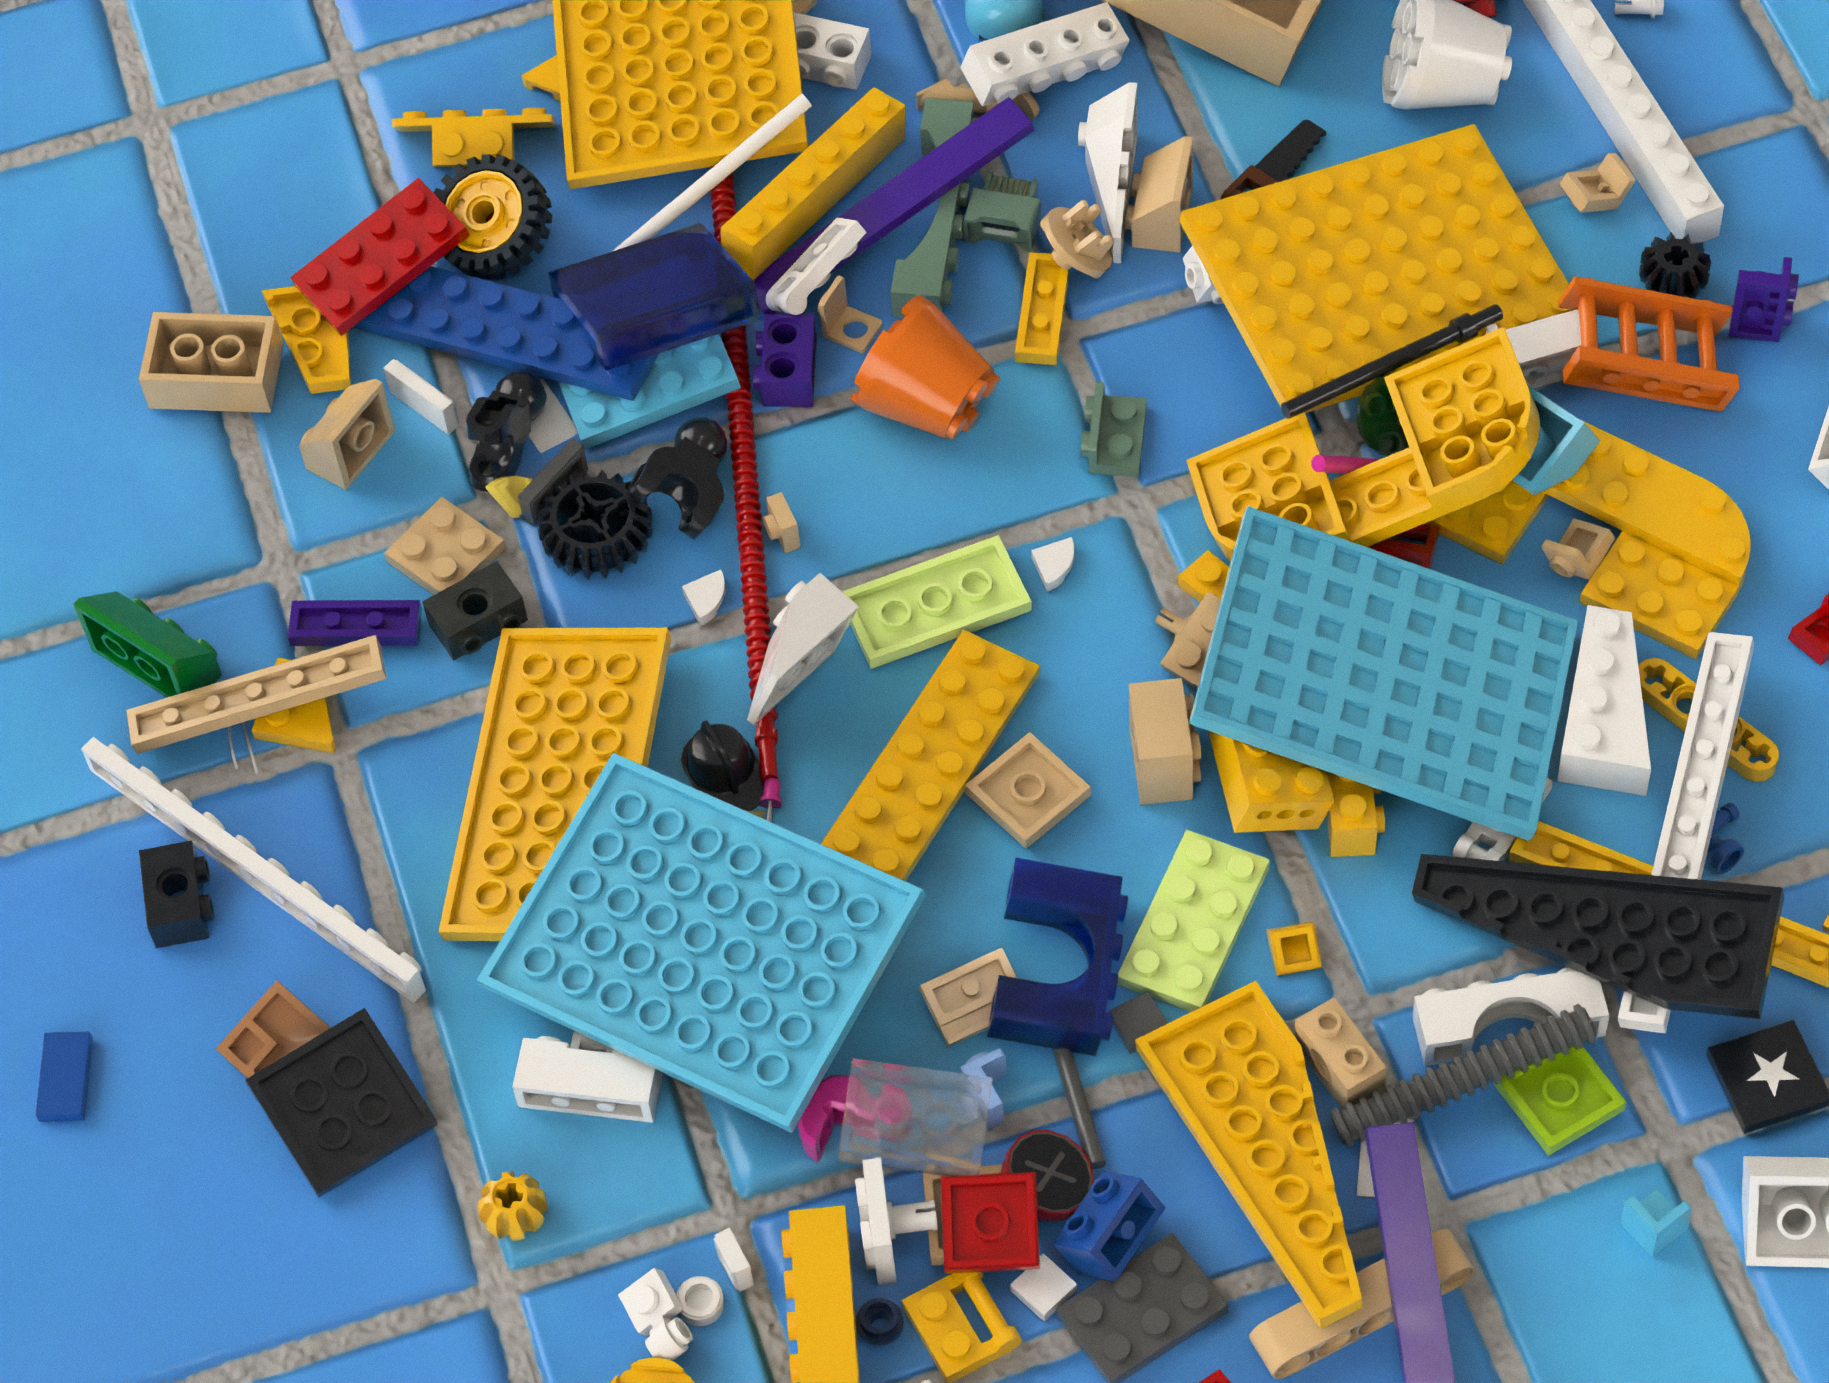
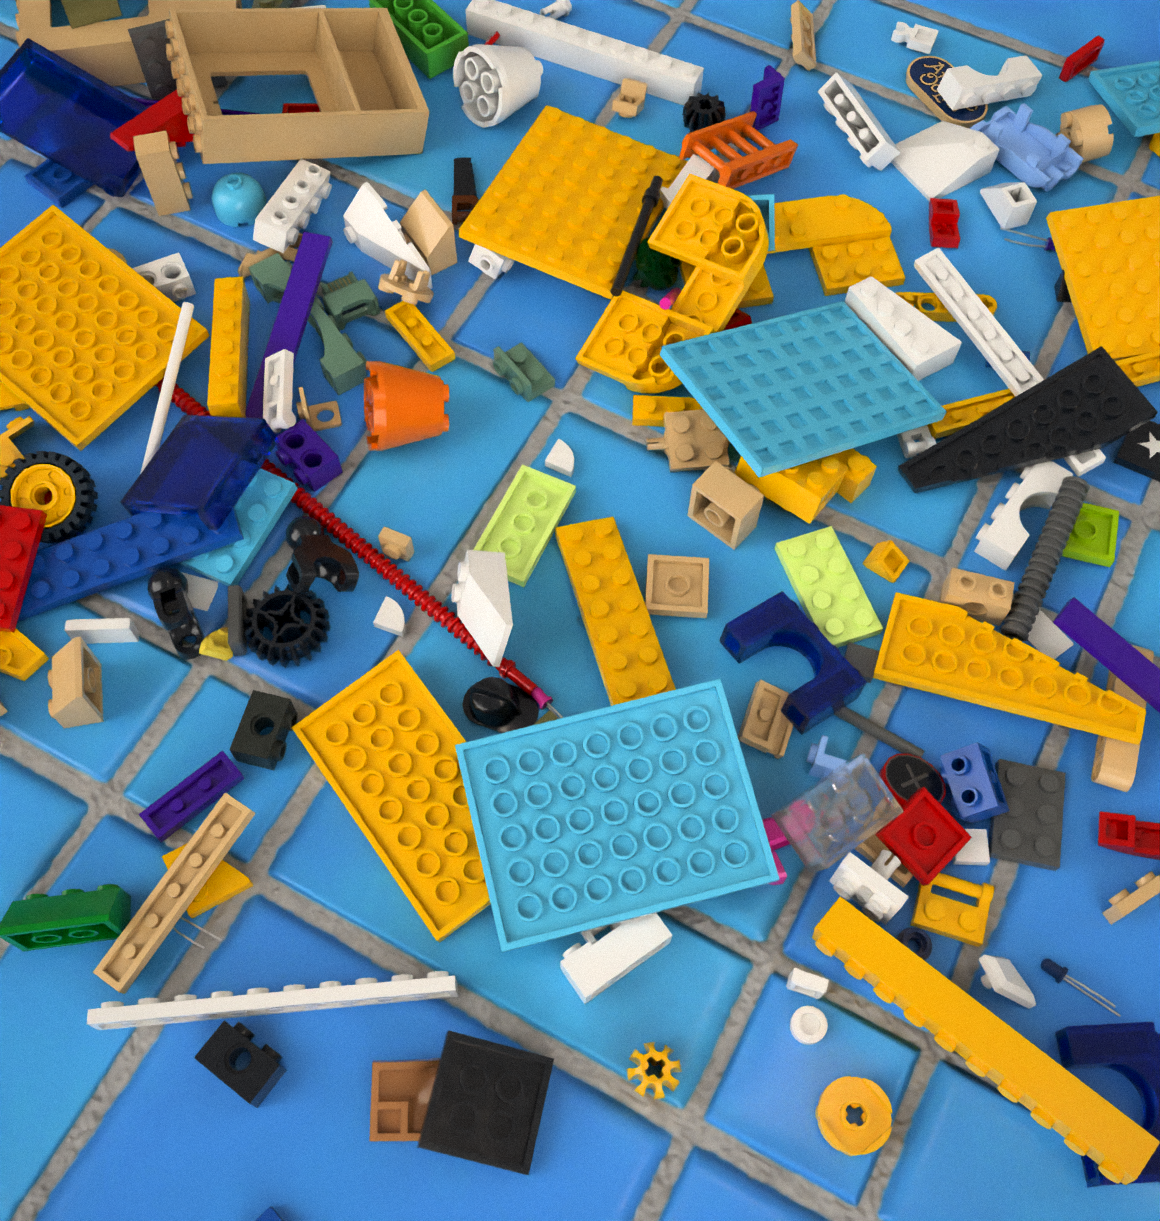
camera: 50 degrees left, 5 degrees up
(444, 547) = (205, 709): tan plate -> none
(651, 1307) = (790, 1054): white plate -> none
(1579, 549) = (805, 268): tan bracket -> none

